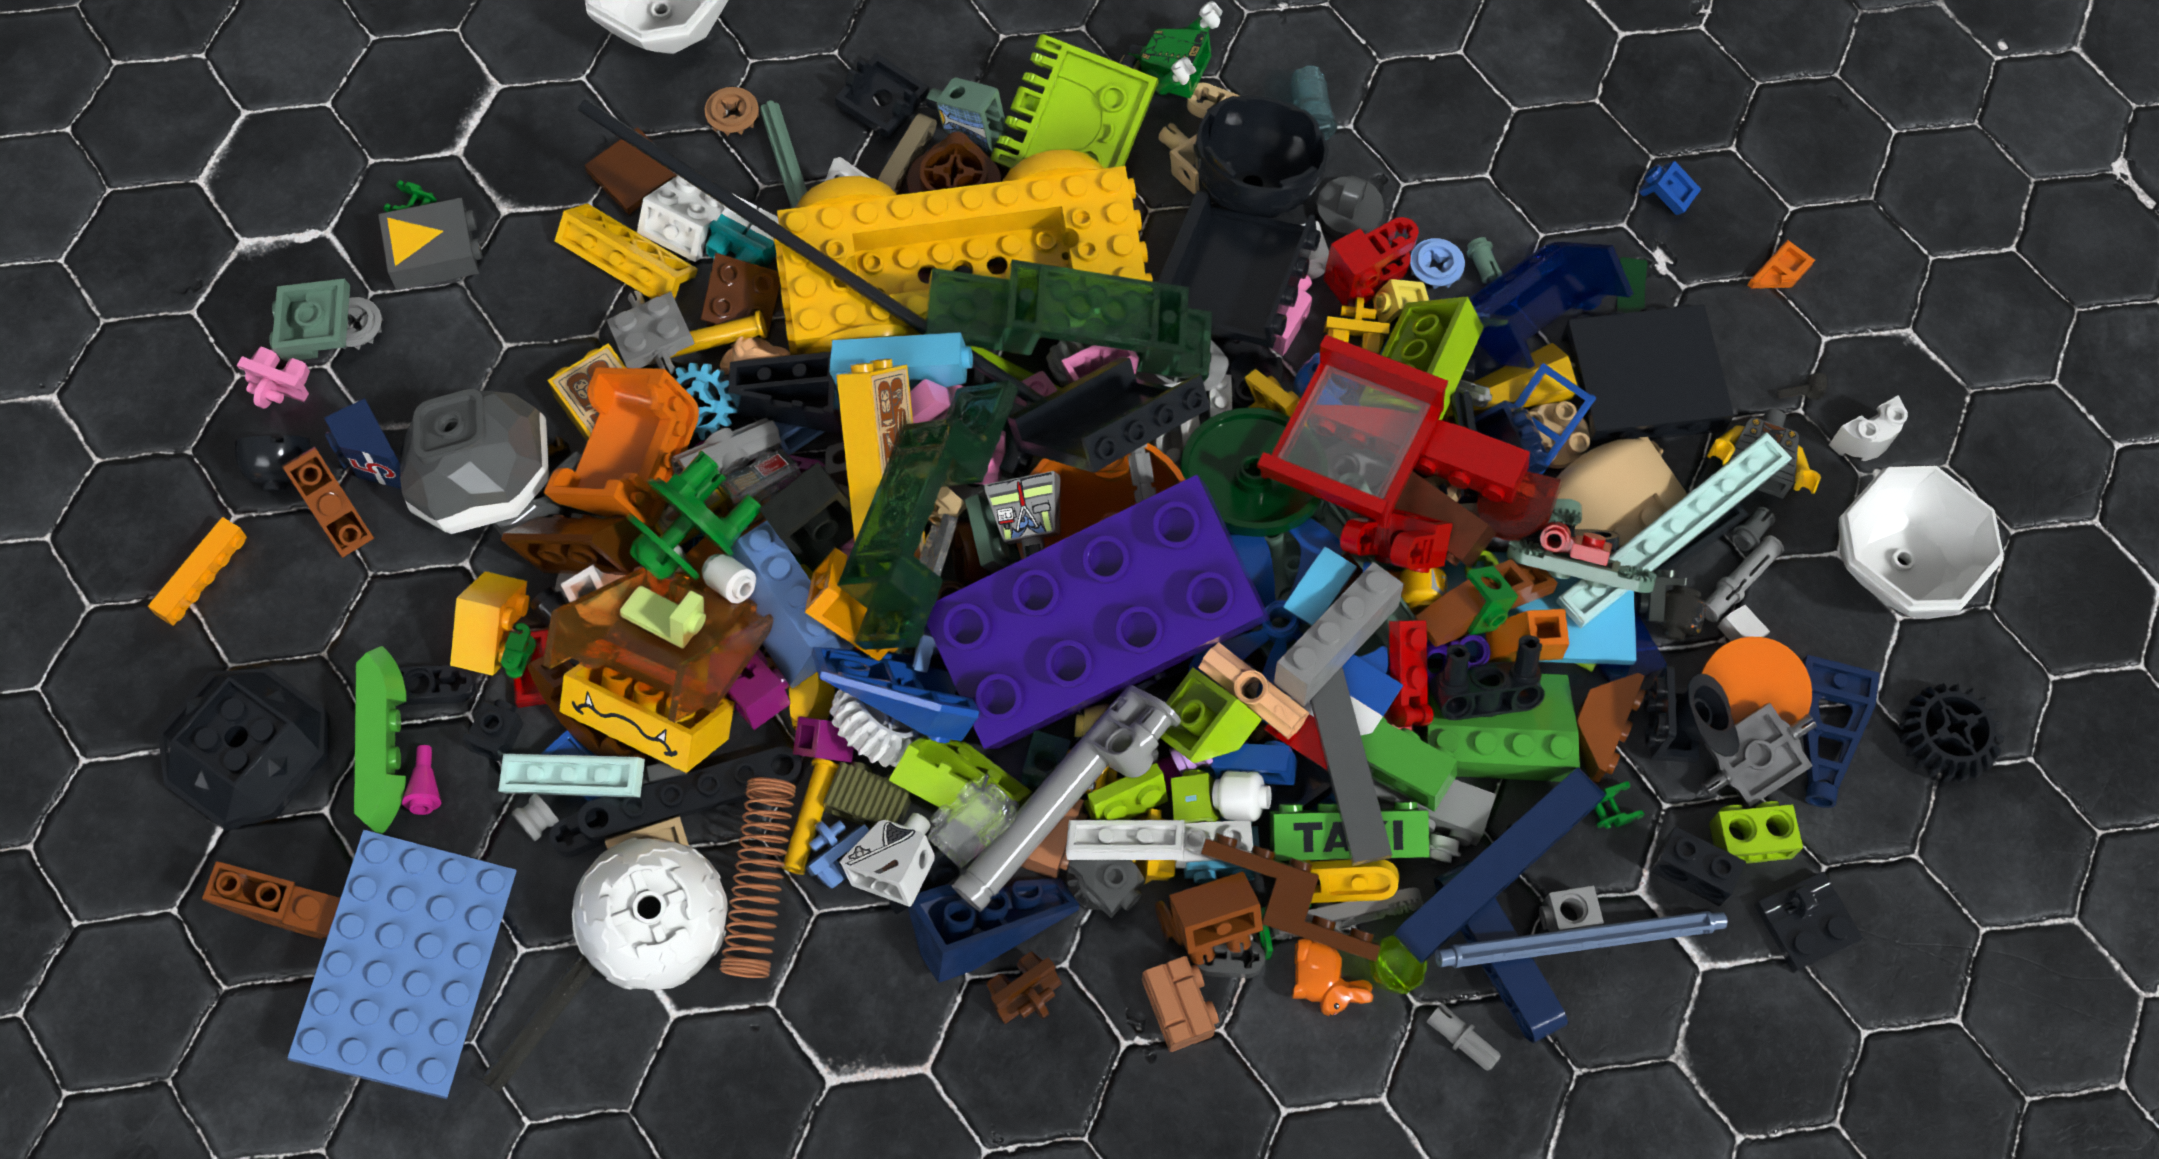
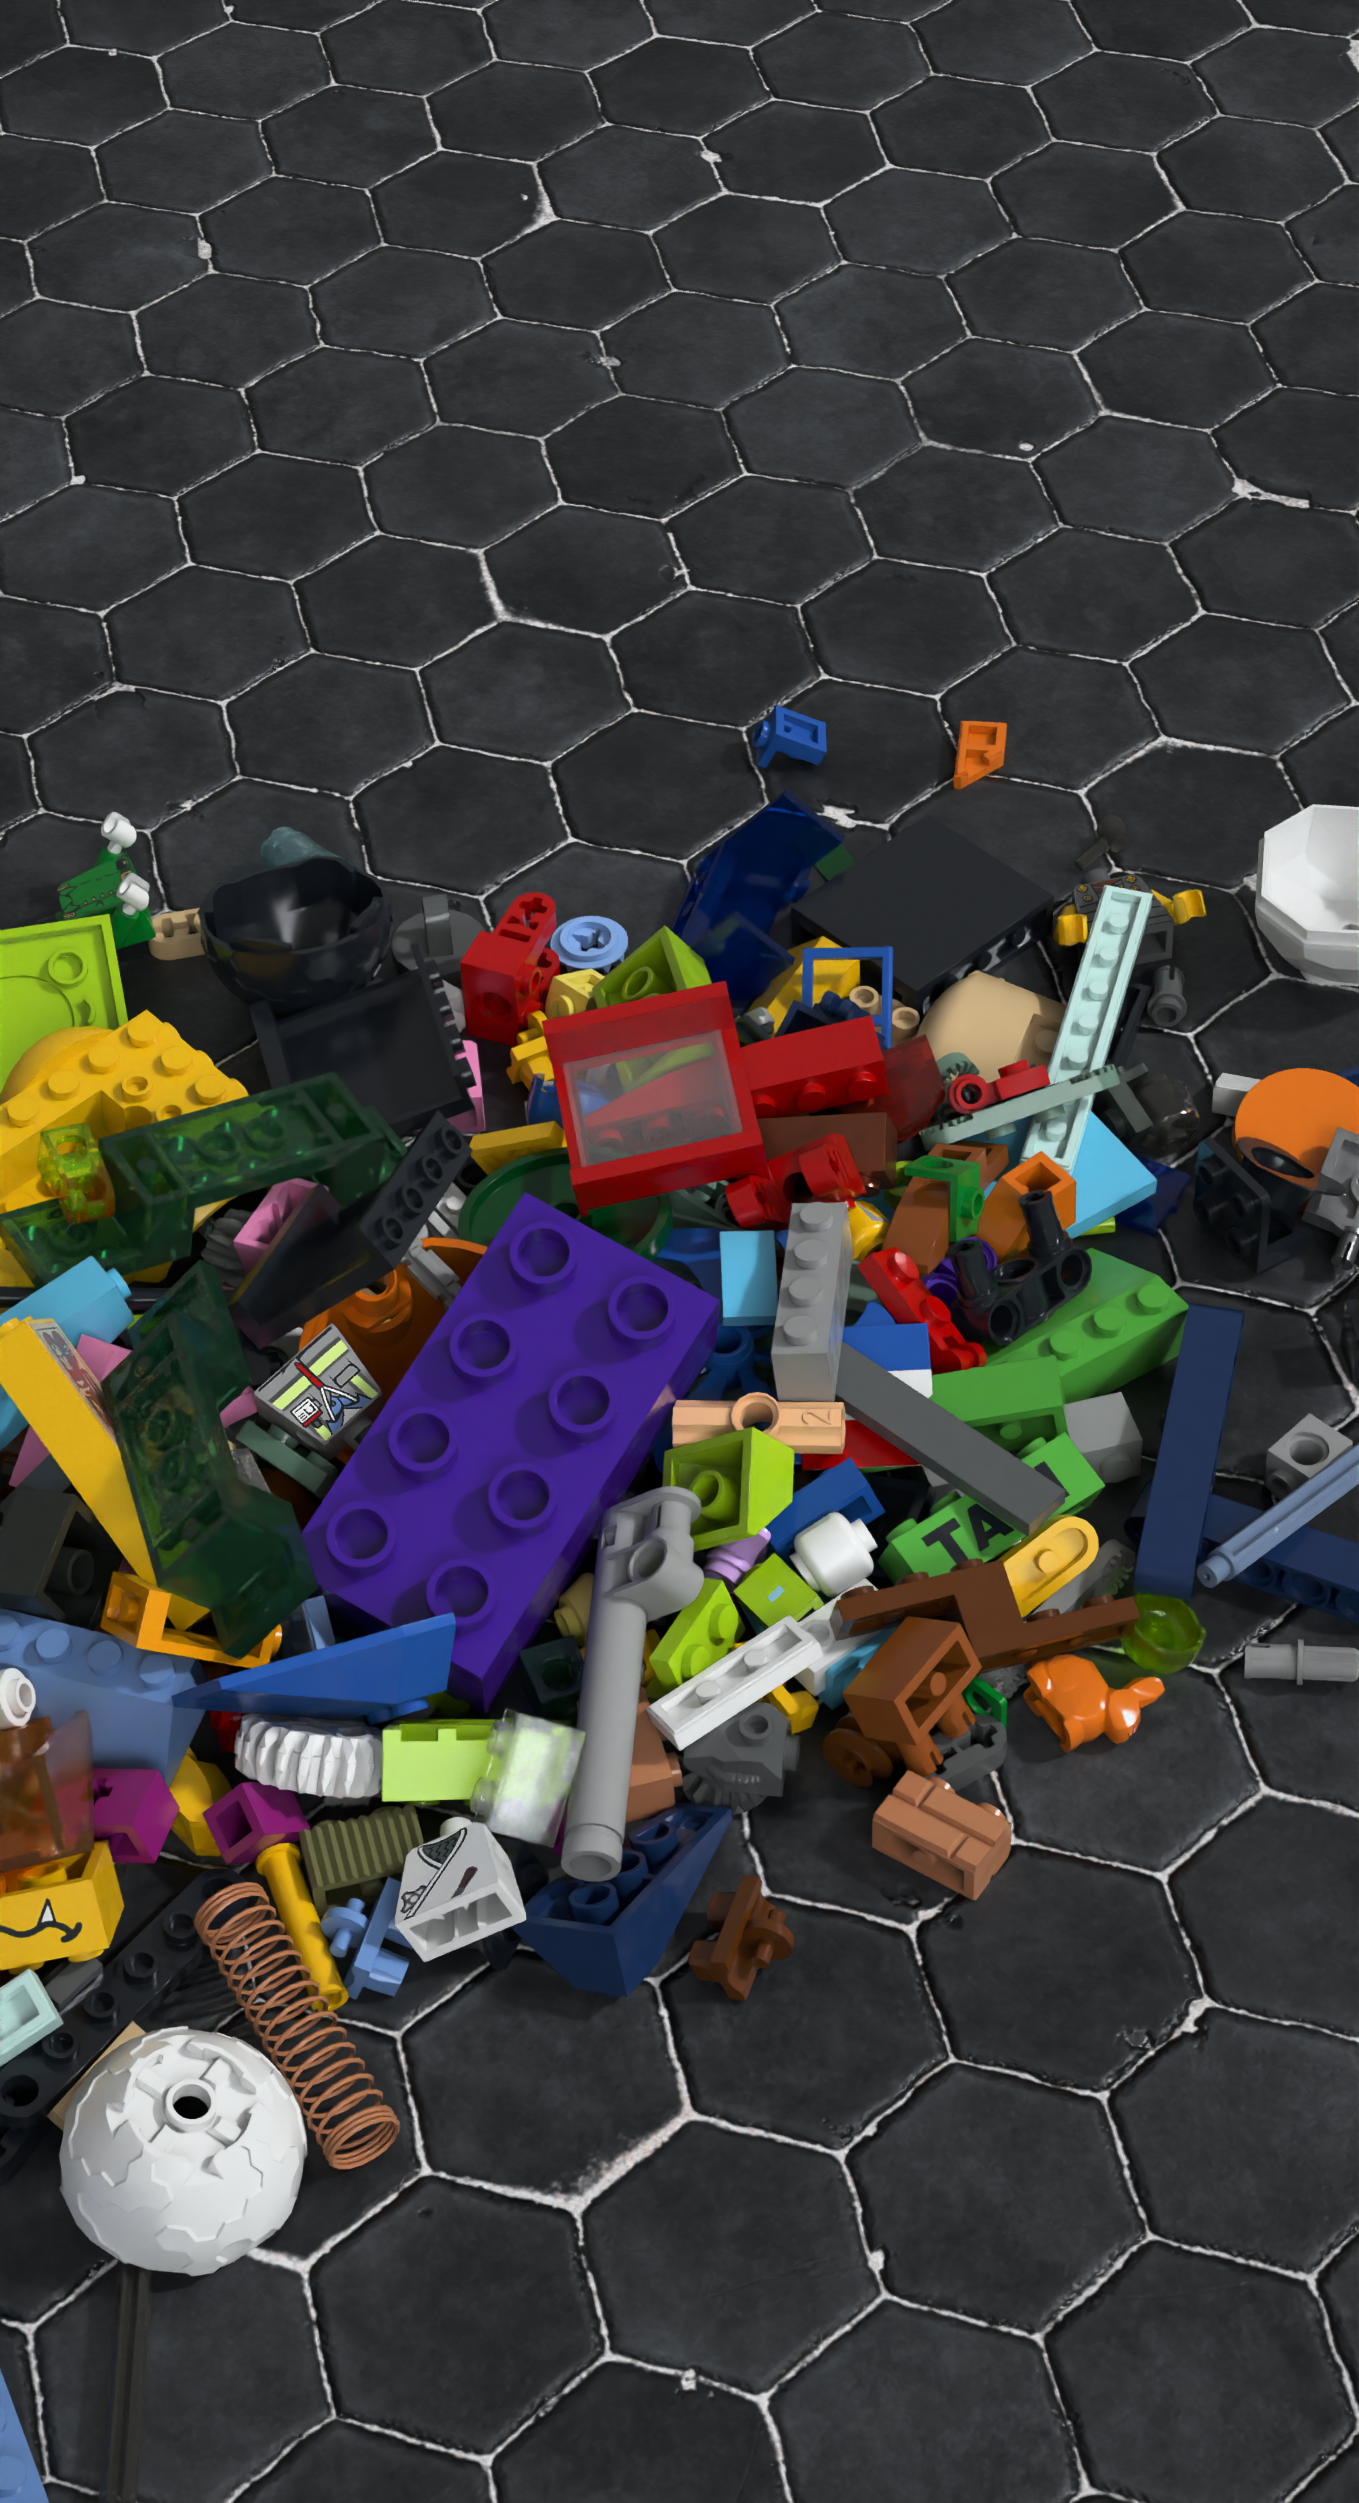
camera: 30 degrees left, 20 degrees down
(990, 270) = (77, 1176): none -> clear neon green leg
(1181, 156) = (197, 994): tan bracket -> none
(1443, 848) = (1114, 1494): white plate -> none
(1484, 260) = (633, 908): sand green pin -> none
(1604, 723) = (1171, 1247): dark orange slope -> none
(1618, 819) = (1274, 1349): green piece -> none
(1732, 588) = (1195, 1061): light grey pin -> none
(1873, 436) = (1211, 840): white cylinder -> none

